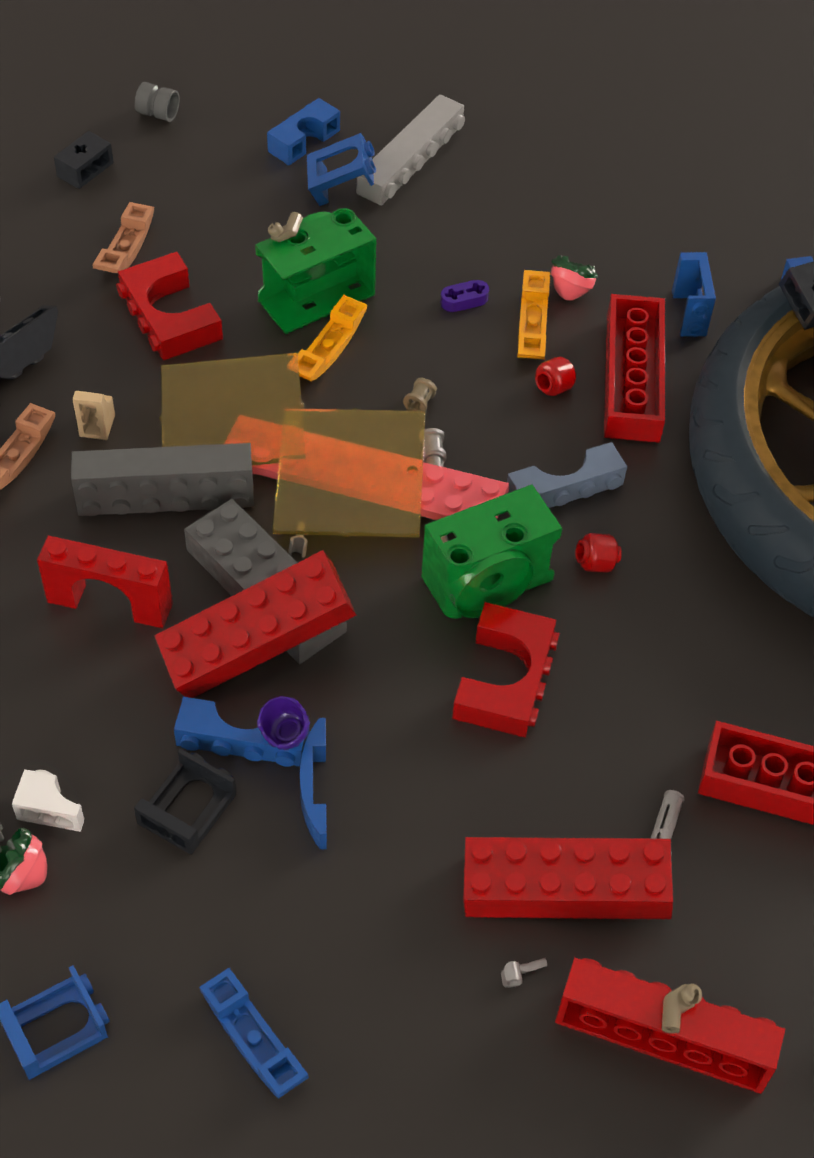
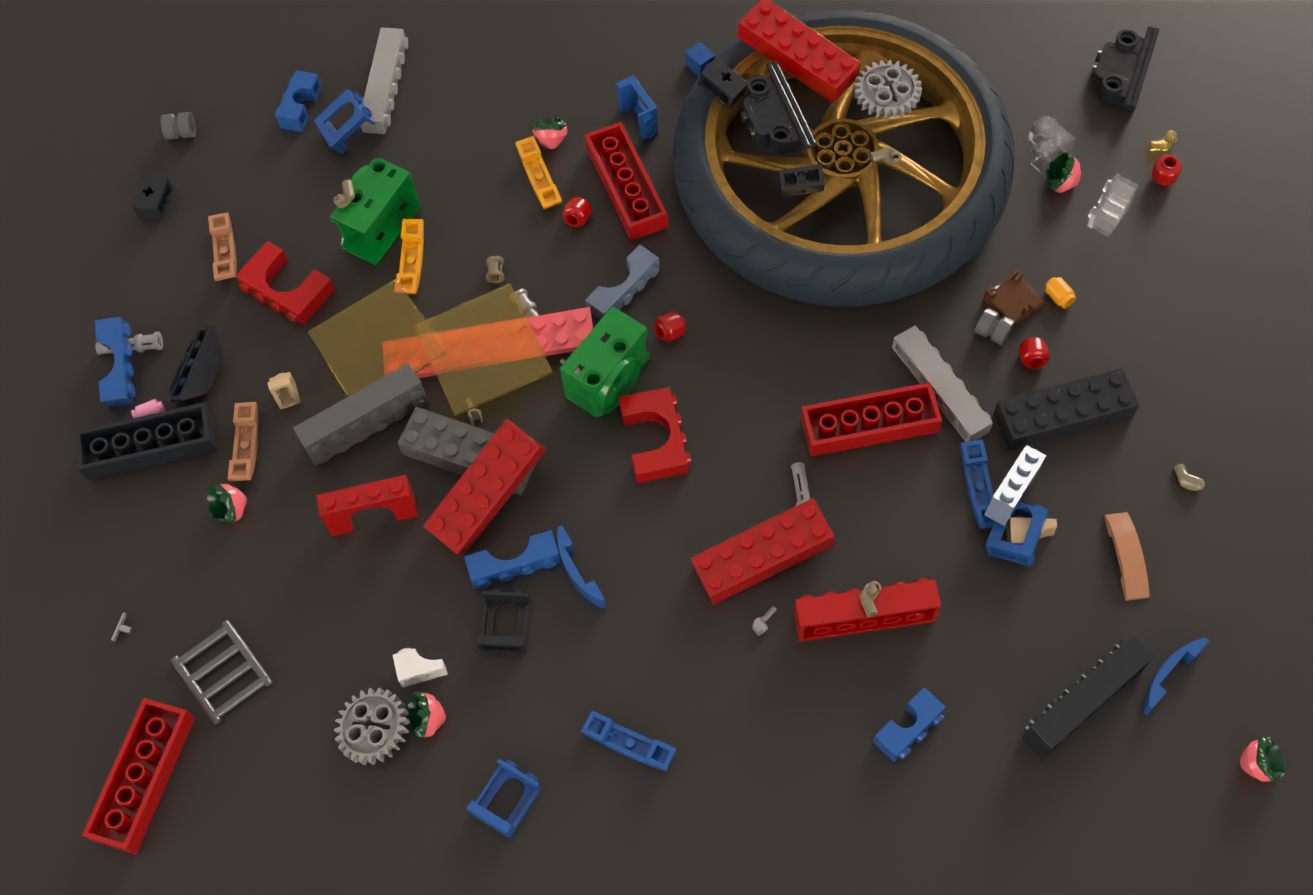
camera: 20 degrees left, 10 degrees up
(283, 722) = (540, 543): dark purple hair -> none
(464, 295) = (482, 178): dark purple beam -> none

